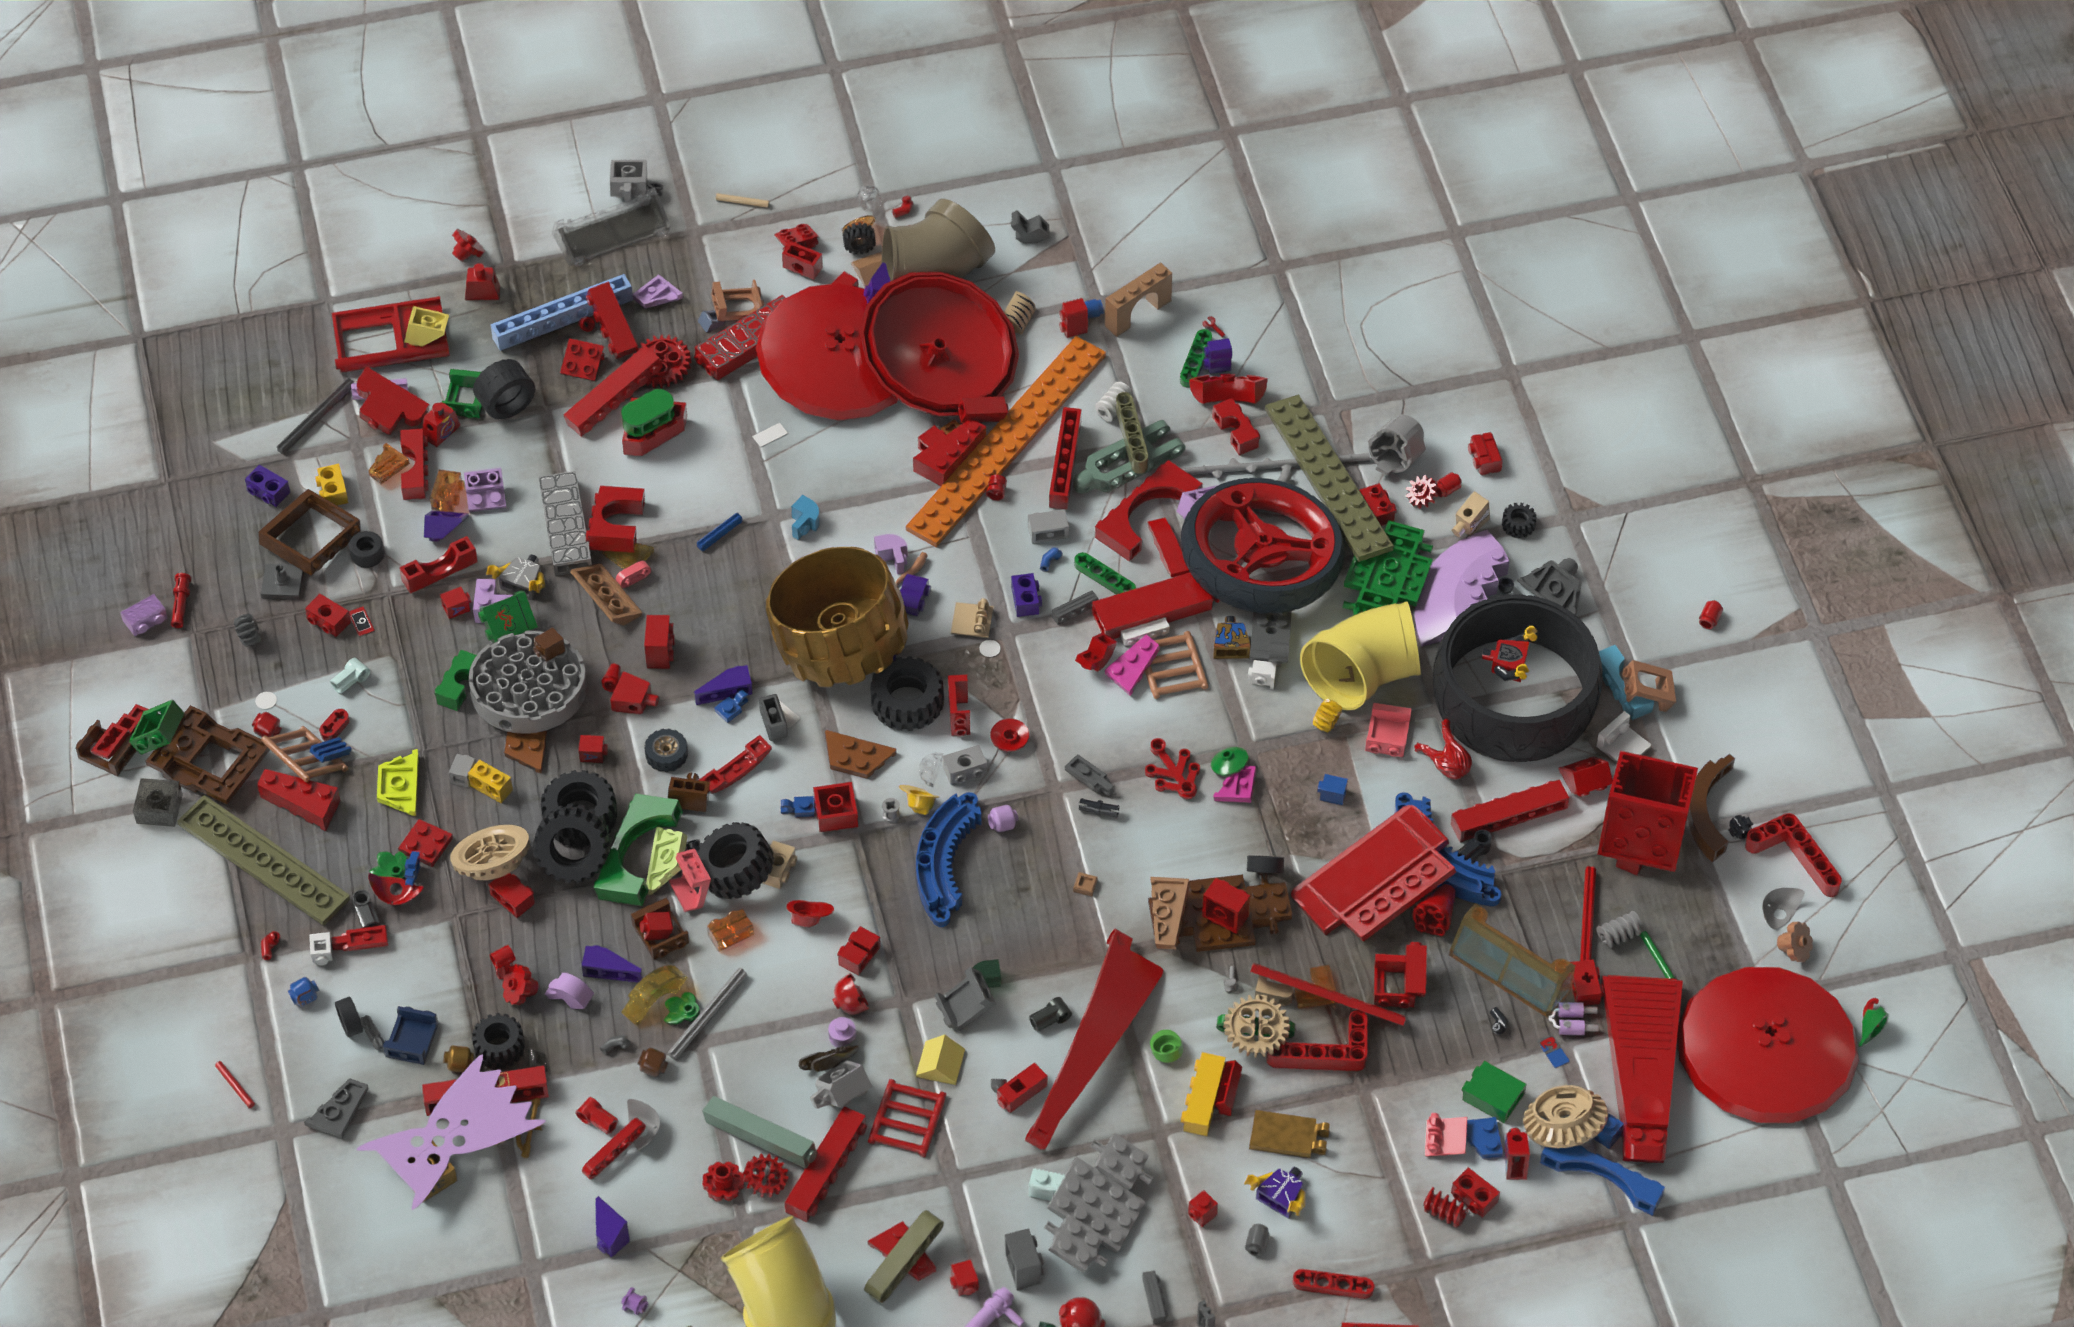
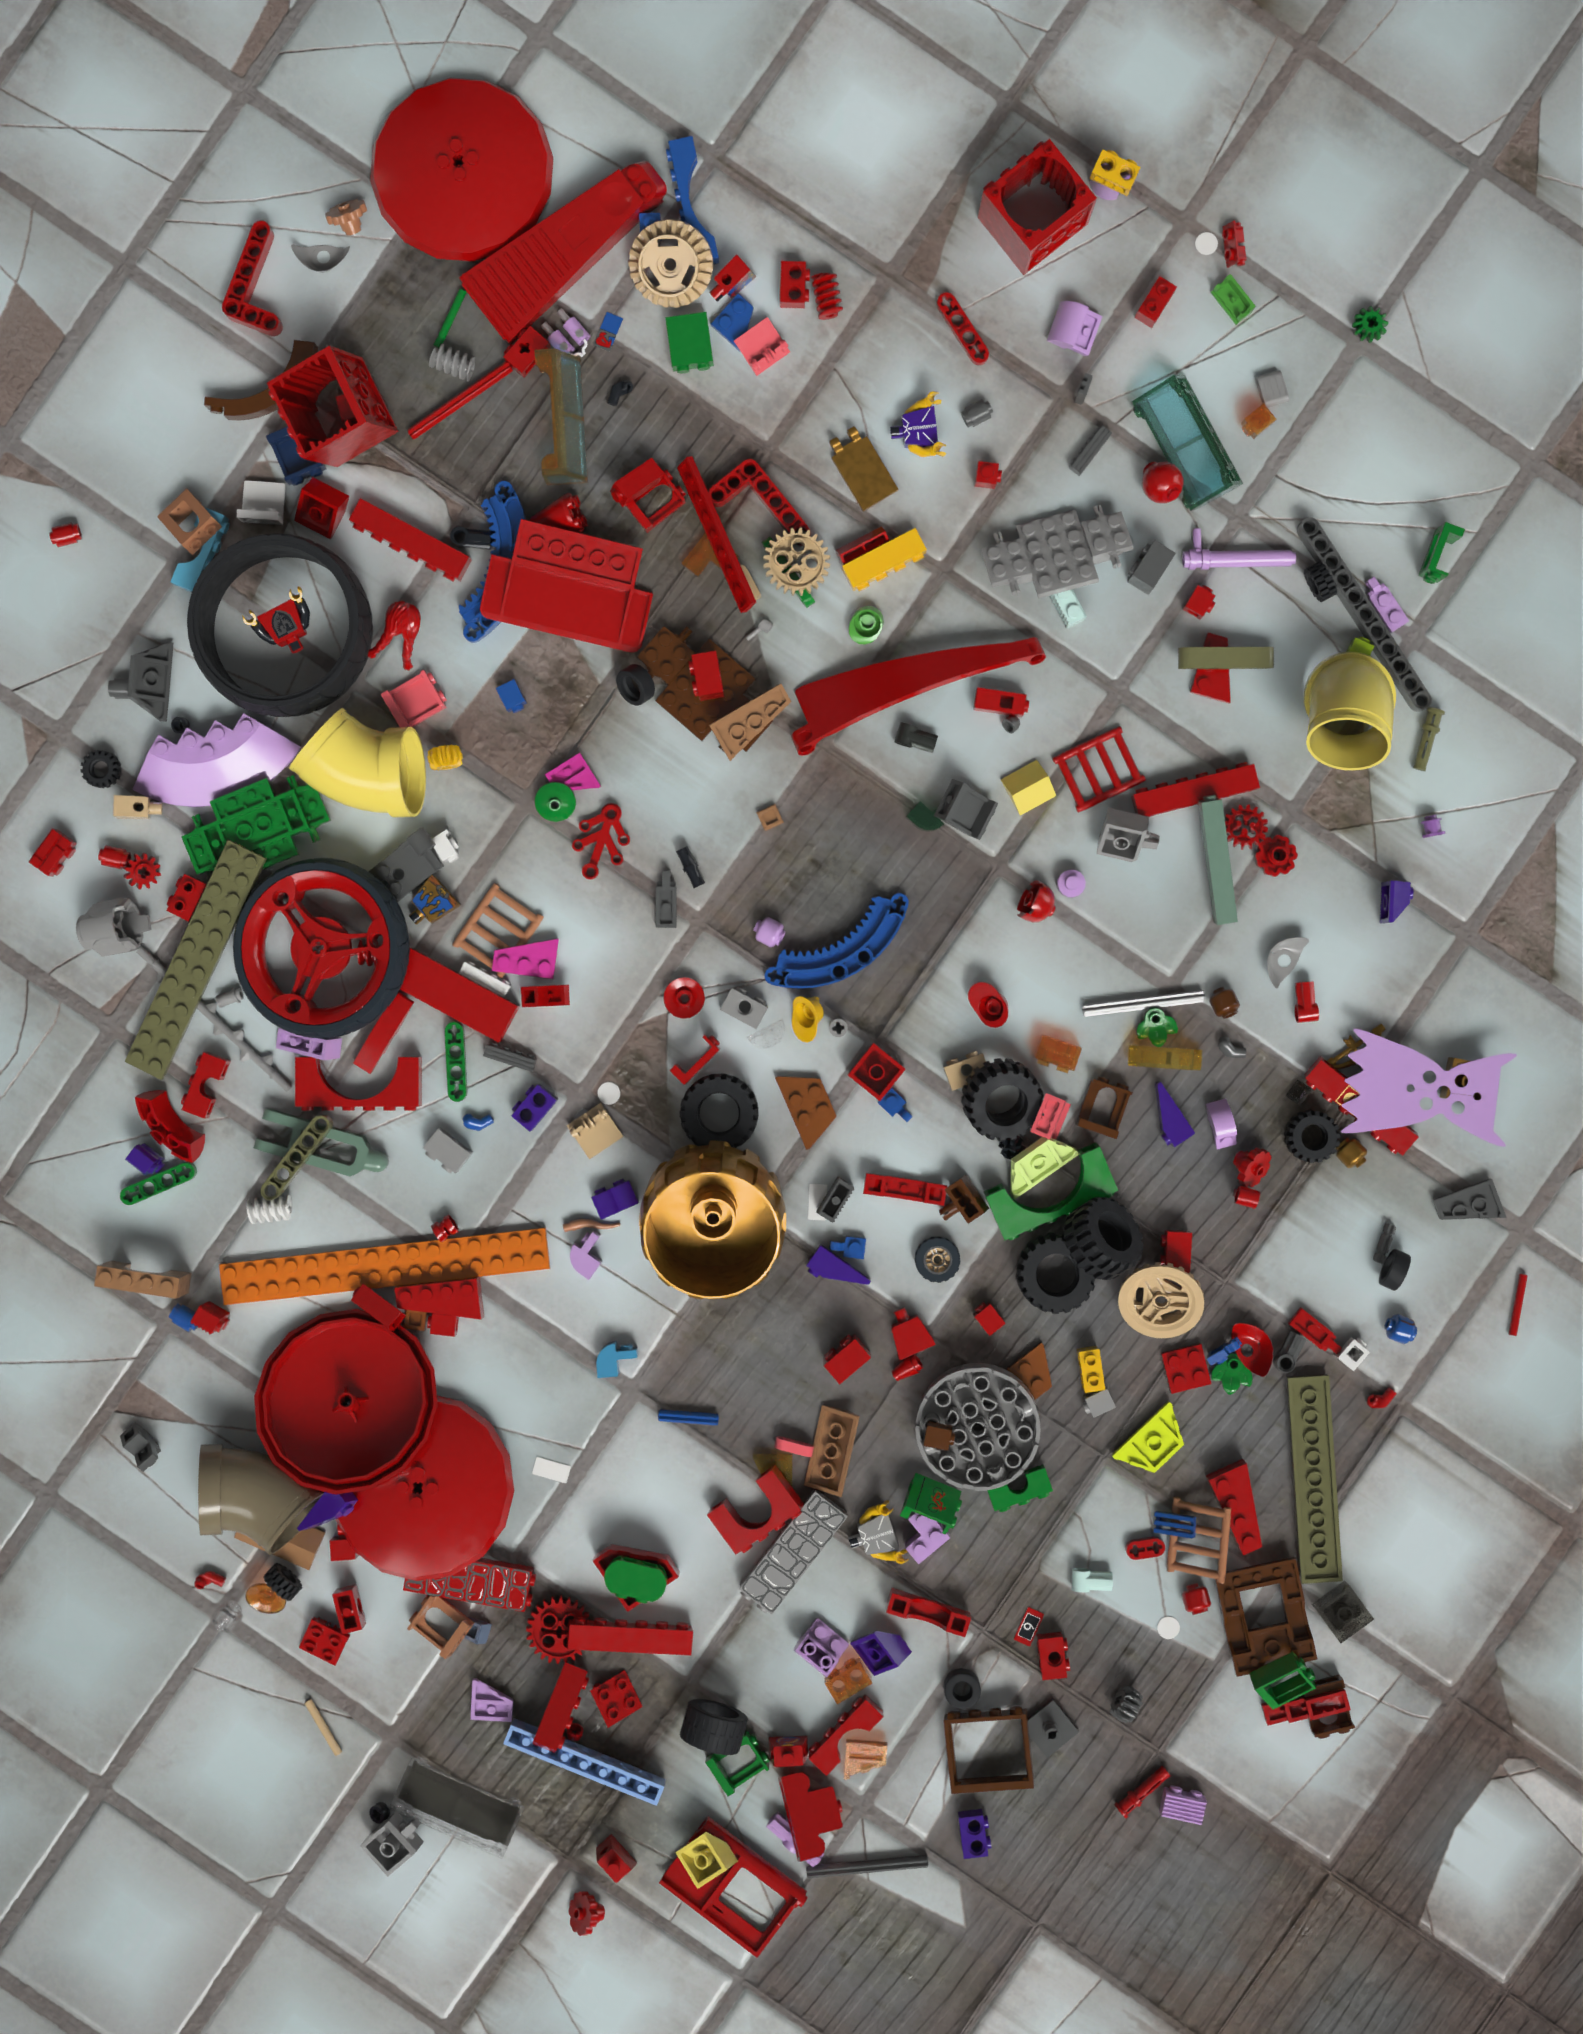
camera: 135 degrees left, 35 degrees up
(332, 484) = (921, 1778): yellow brick -> none
(411, 1035) = (1362, 1209): dark blue panel -> none
(455, 602) = (948, 1564): red brick -> none
(613, 1148) = (1313, 962): red beam -> none
(656, 926) = (1106, 1111): red brick -> none
(827, 1060) = (1101, 870): dark brown animal -> none
(858, 950) = (989, 935): red piece -> none
(1020, 311) = (241, 1374): tan brick -> none
(1065, 458) = (366, 1195): red brick -> none
(1205, 324) = (109, 1200): red hand -> none
(1740, 826) = (268, 345): black gear -> none
(1873, 1021) = (372, 100): green piece -> none

